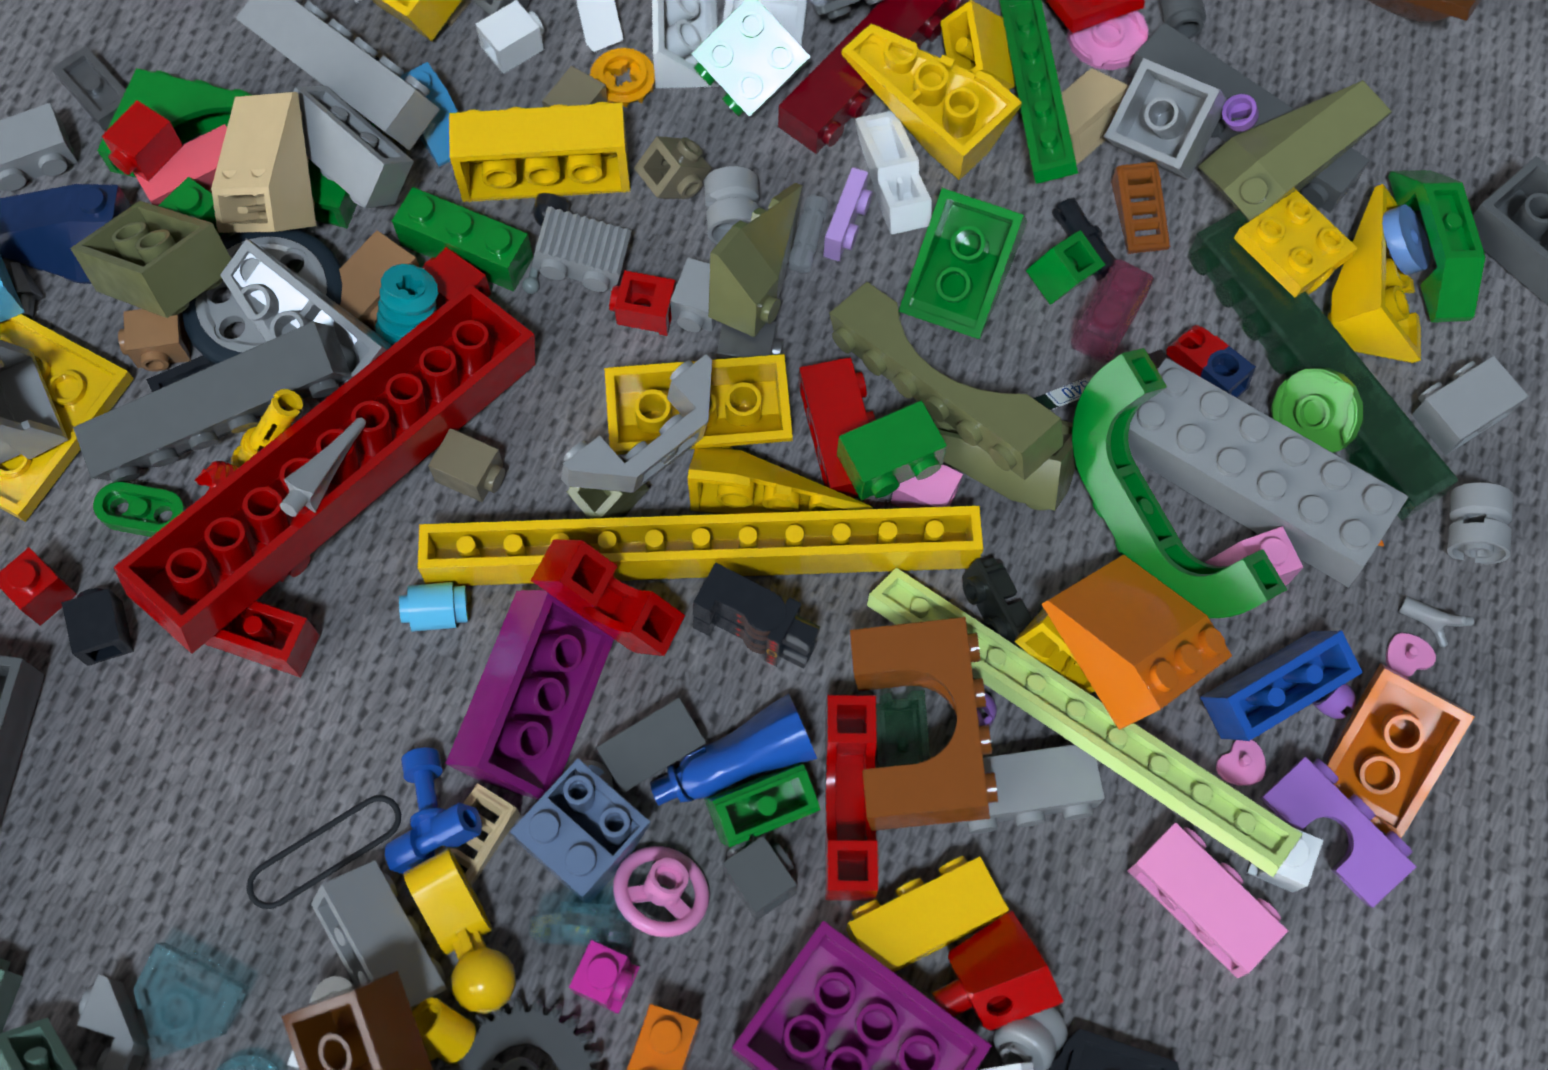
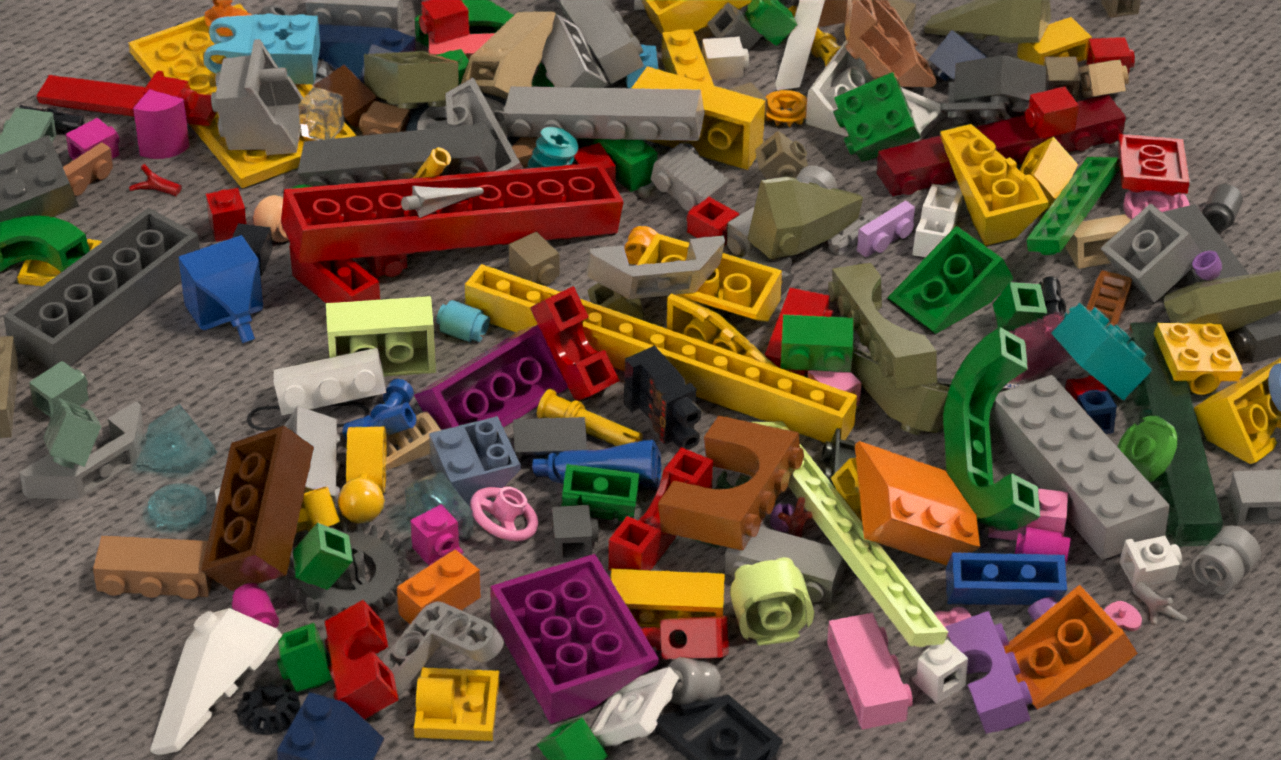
camera: 30 degrees right, 25 degrees down
(69, 371) = (321, 114): none -> clear brick
(78, 312) = (355, 94): none -> reddish brown brick
(97, 552) = (269, 215): none -> light nougat head
(105, 720) = (222, 285): none -> blue piece
(330, 804) = (329, 381): none -> white brick
(354, 701) = (397, 327): none -> yellowish green brick
(437, 213) = (605, 112): none -> light grey brick
(475, 69) = (683, 56): none -> yellow brick
(581, 378) = (638, 242): none -> light orange wheel
(652, 687) = (556, 407): none -> yellow pin
(1009, 722) = (797, 519): none -> clear red bar
(1055, 867) = (771, 601): none -> yellowish green brick
(1197, 293) = (1102, 349): none -> teal brick
(1286, 610) = (1042, 542): none -> dark pink brick
(1403, 566) = (1150, 560): none -> white brick

